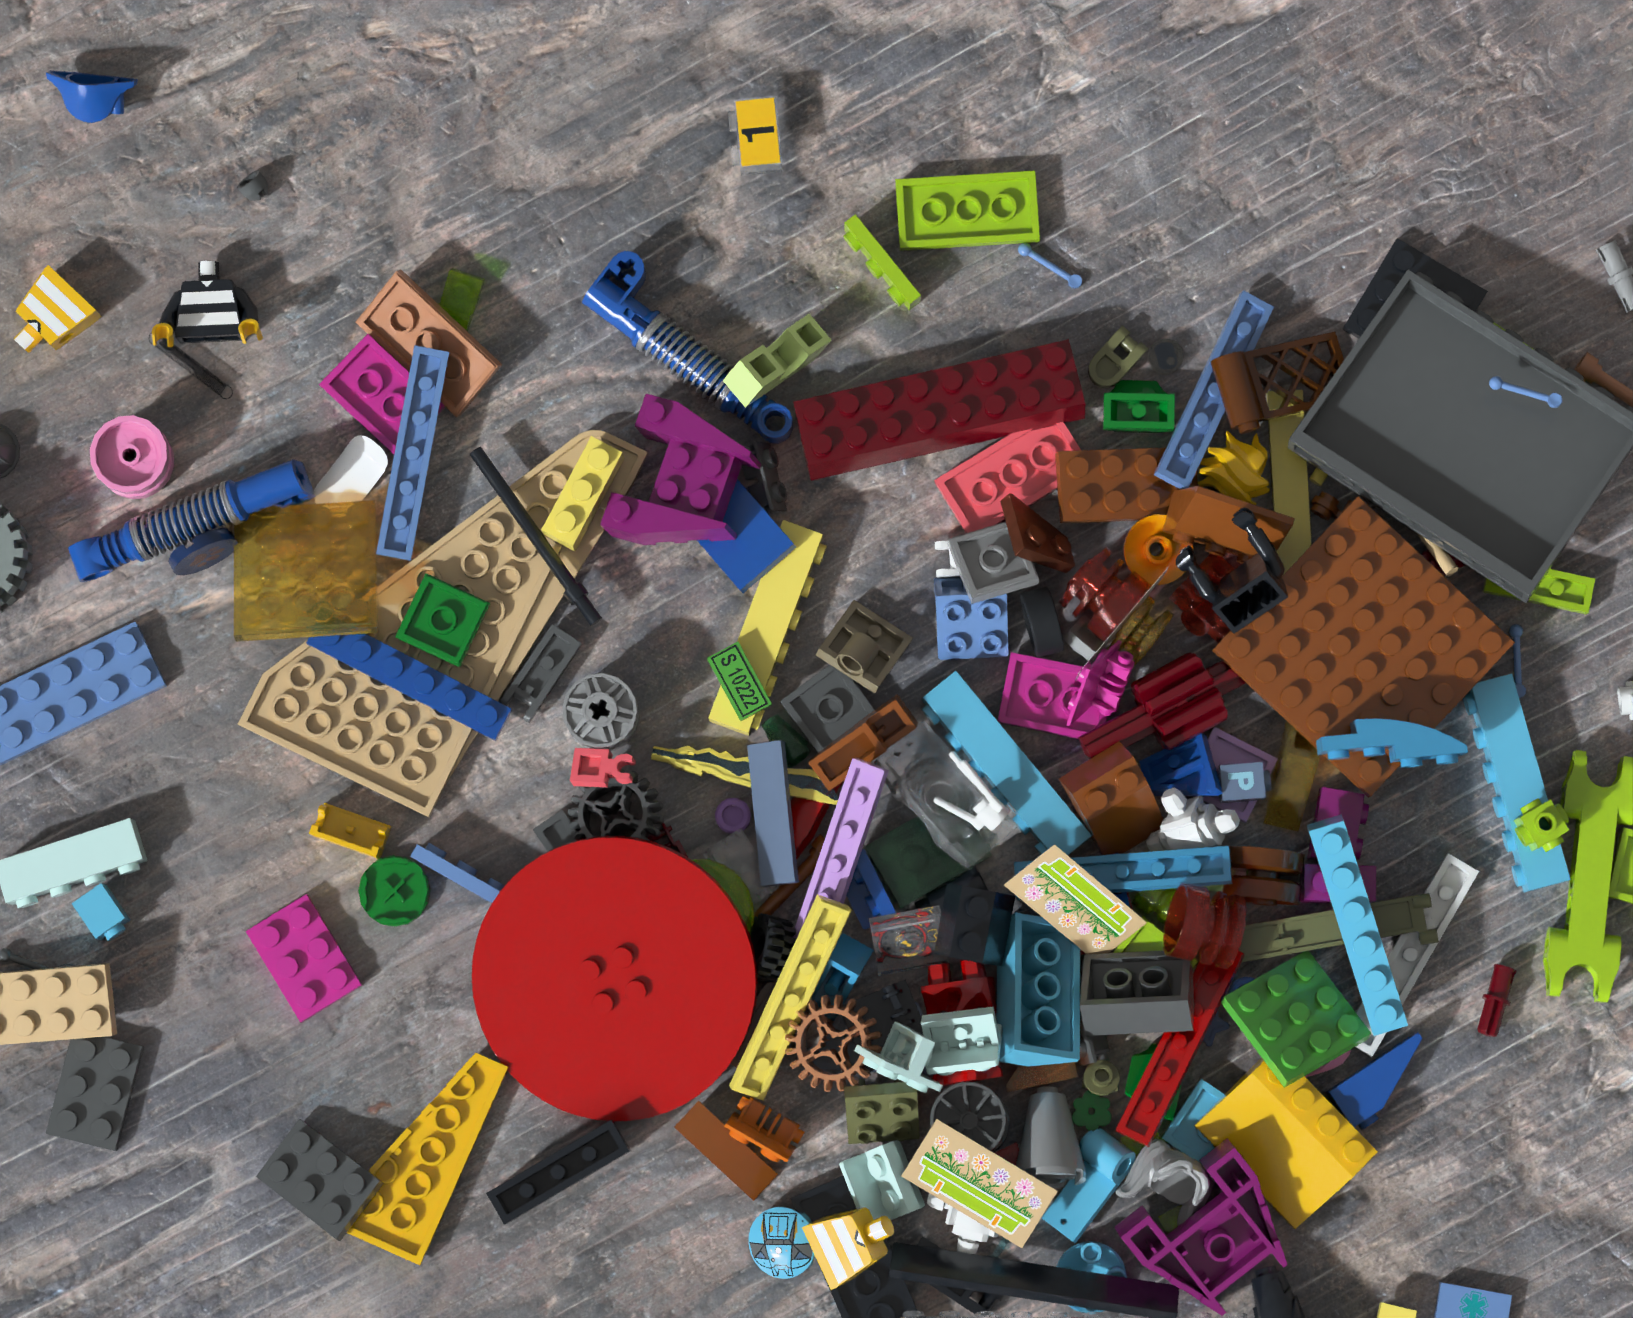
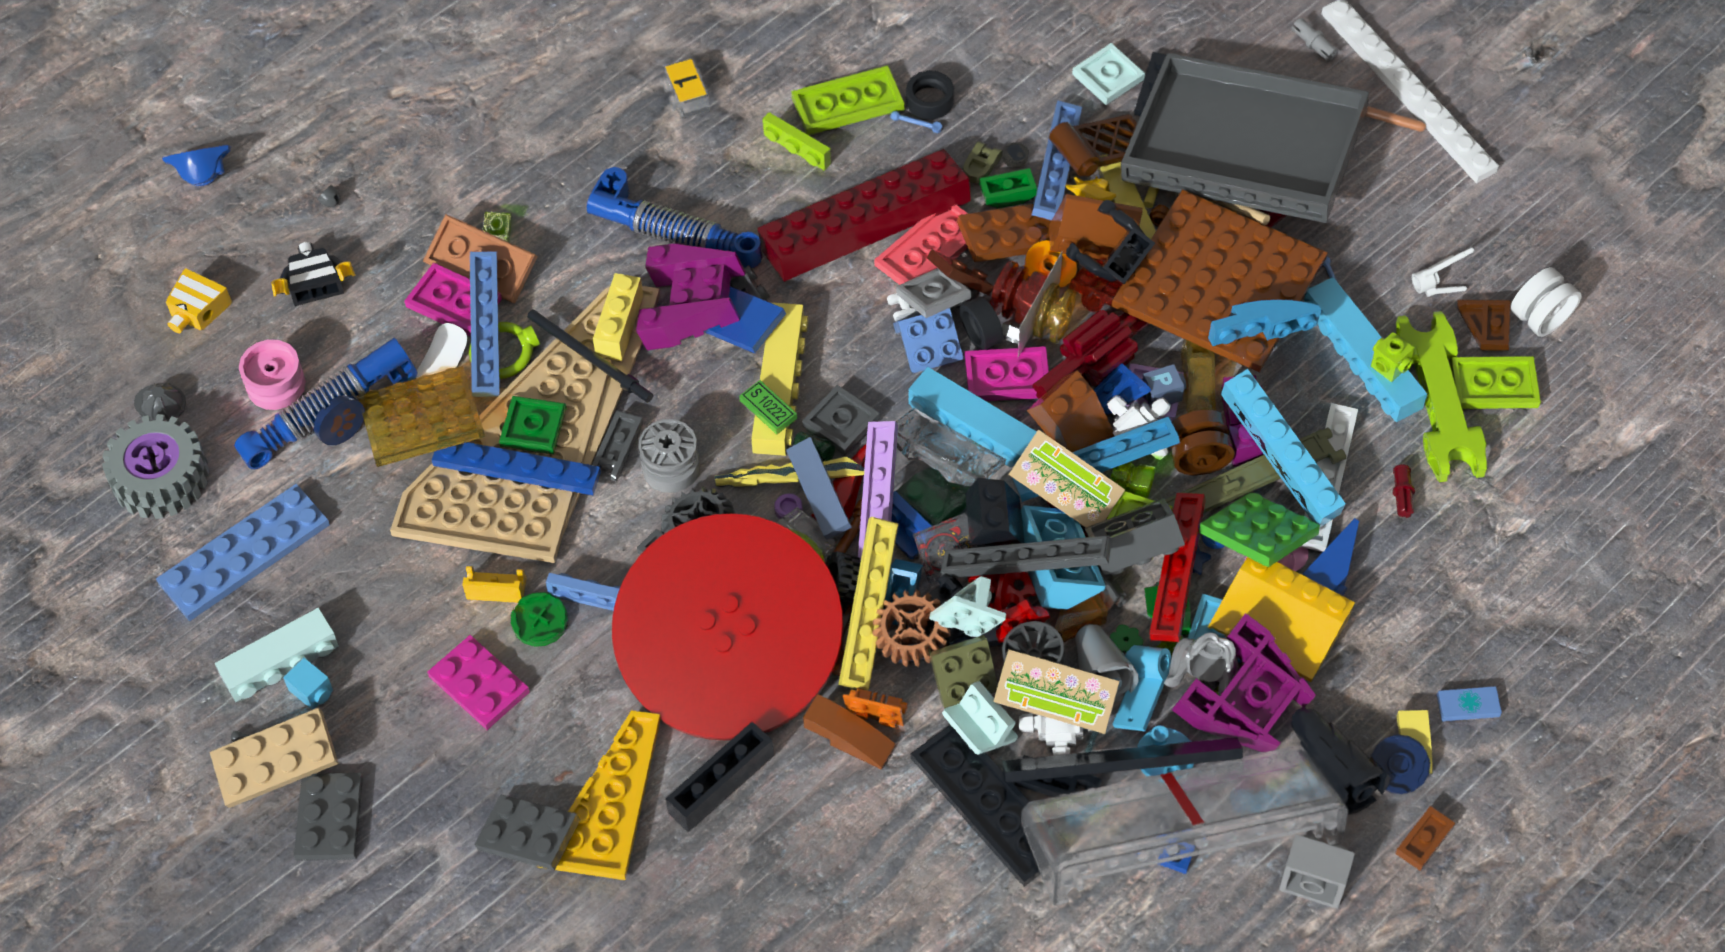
camera: 15 degrees left, 25 degrees down
(195, 364) = (308, 319): black piece -> none
(464, 483) = (528, 341): none -> lime piece
(595, 766) = (675, 484): coral plate -> none
(772, 365) = (732, 209): yellowish green arch -> none
(780, 1243) = (913, 786): medium azure dish -> none
(848, 1243) = (967, 762): yellow torso -> none
(864, 646) = (854, 371): dark tan plate -> none
(864, 741) = (887, 408): dark orange slope -> none
(963, 1040) = (1012, 580): light aqua bracket -> none
(988, 808) = (981, 445): white plant -> none
(1011, 1005) = (1027, 557): none -> dark grey tile
(1088, 206) = (930, 110): none -> black tyre
(1101, 1078) = (1125, 612): olive plate -> none
(1102, 683) = (1032, 328): dark pink hinge -> none
(1204, 926) = (1169, 470): clear red wheel -> none
(1326, 259) = (1108, 74): none -> light aqua plate
(1554, 400) = (1298, 96): medium blue hinge -> none
(1556, 590) = (1338, 228): lime plate -> none

